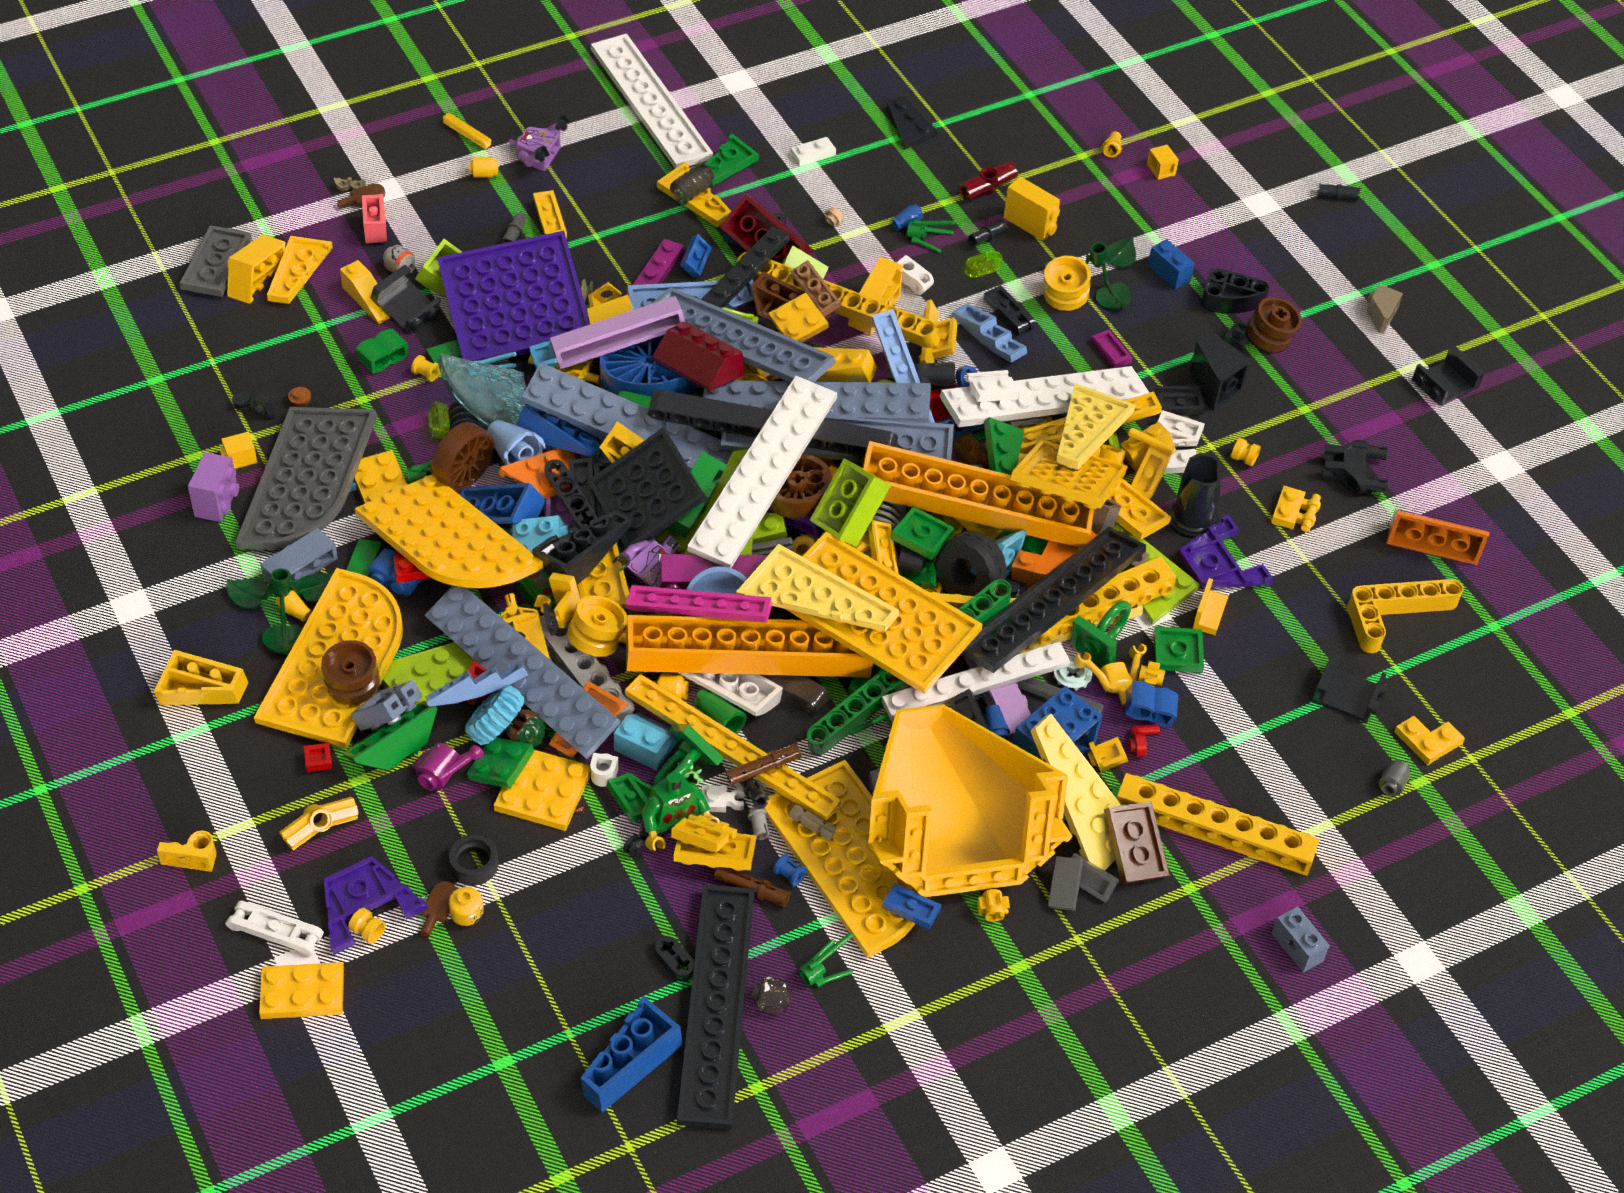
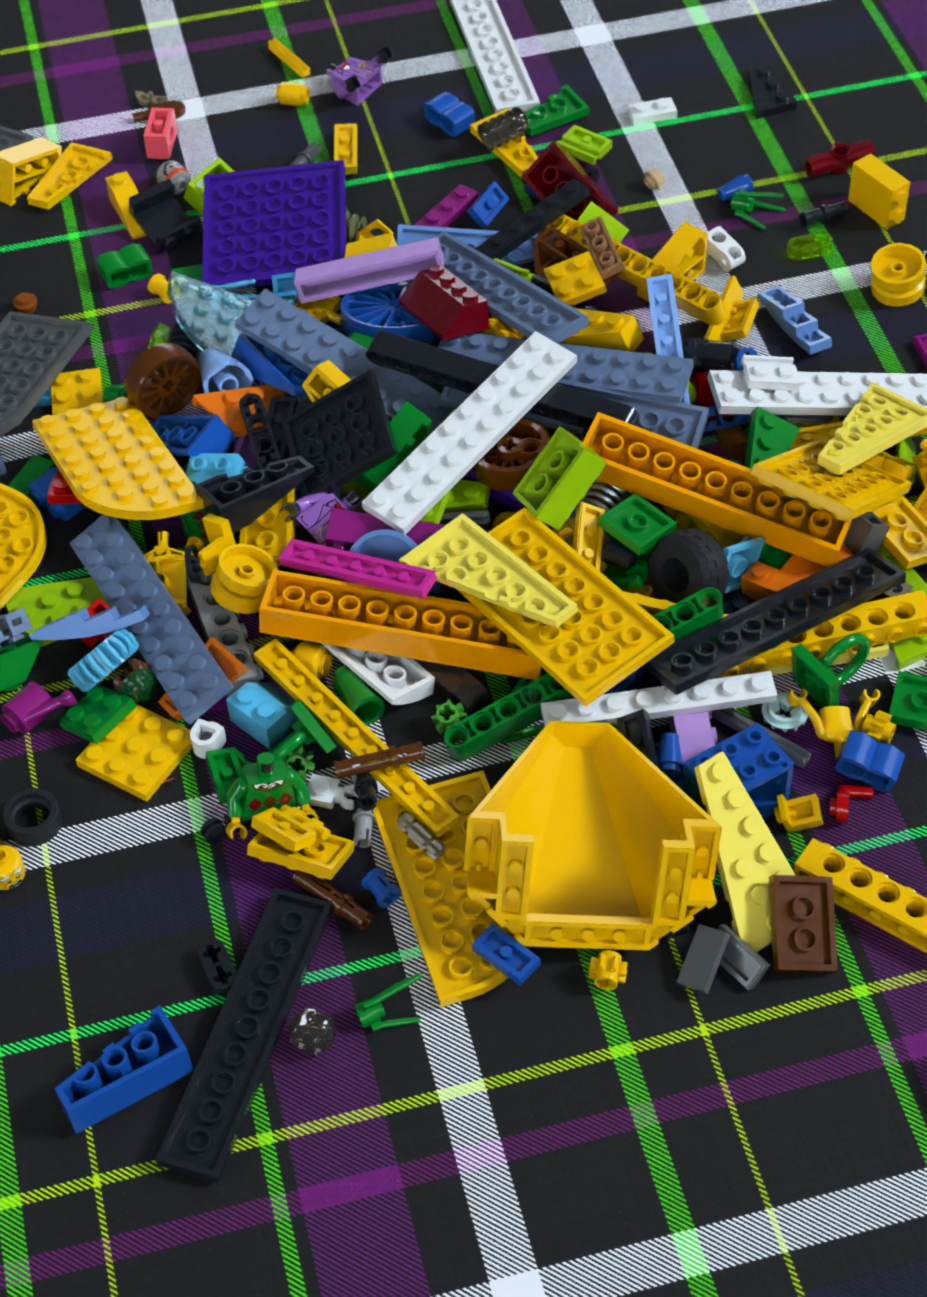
camera: 20 degrees right, 0 degrees up
(634, 172) = (449, 114): none -> blue brick
(764, 189) = (585, 144): none -> lime plate
(801, 713) = (447, 715): none -> bright green gear
(1009, 310) = (825, 298): black plate -> none

